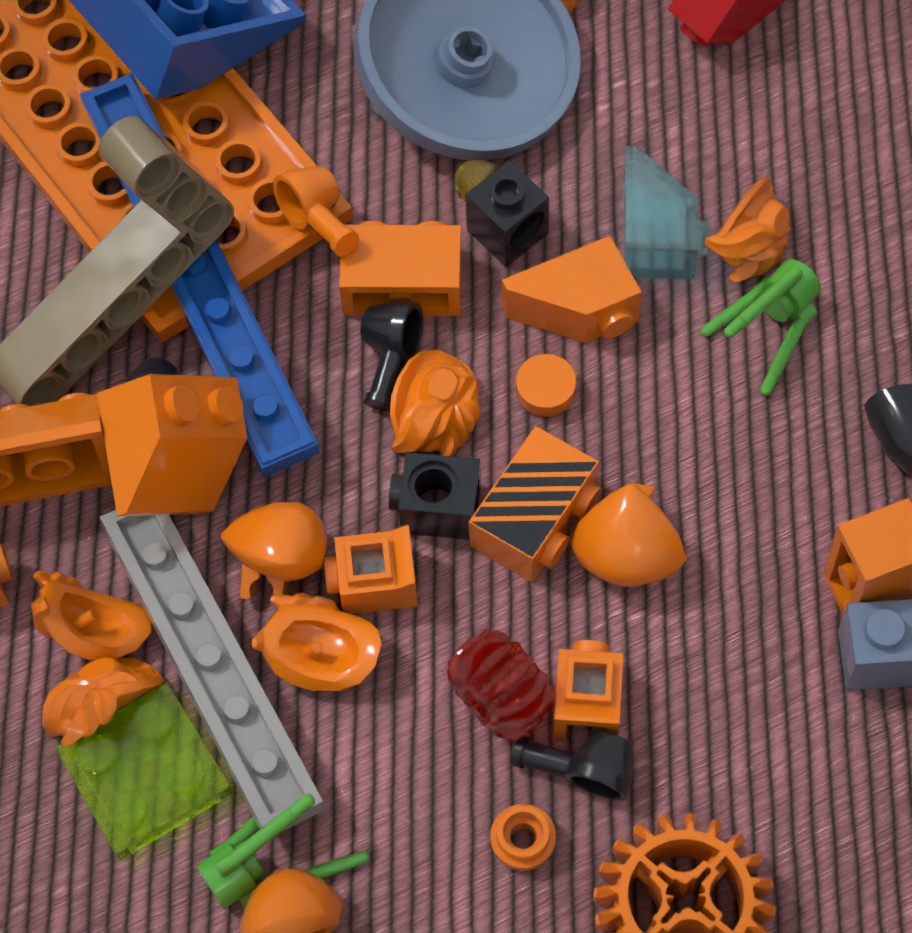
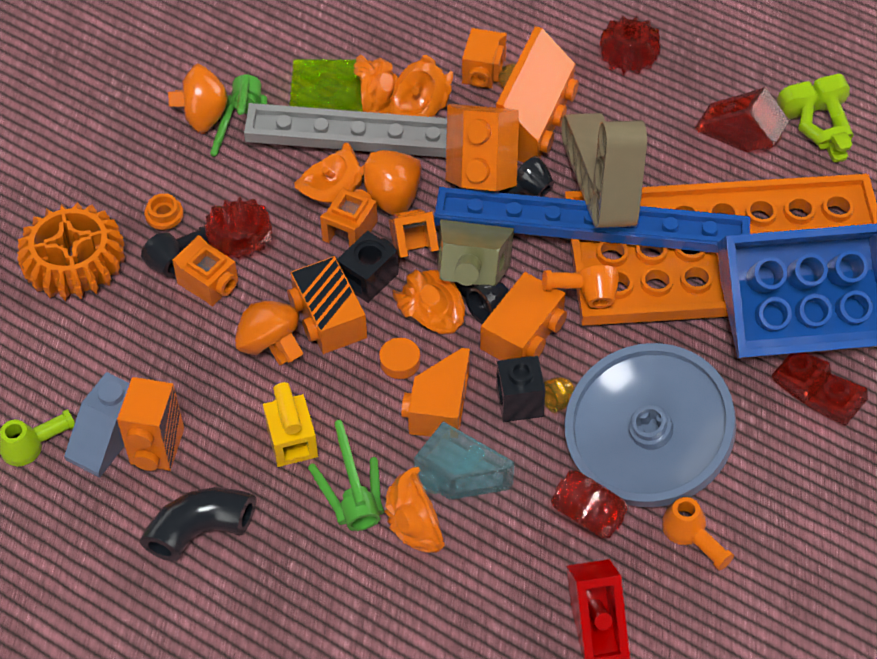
camera: 120 degrees right, 10 degrees down
(347, 368) = (473, 252): none -> olive torso
(349, 469) = (413, 231): none -> orange window
(619, 53) = (589, 504): none -> clear red gear
(748, 424) = (290, 427): none -> yellow brick

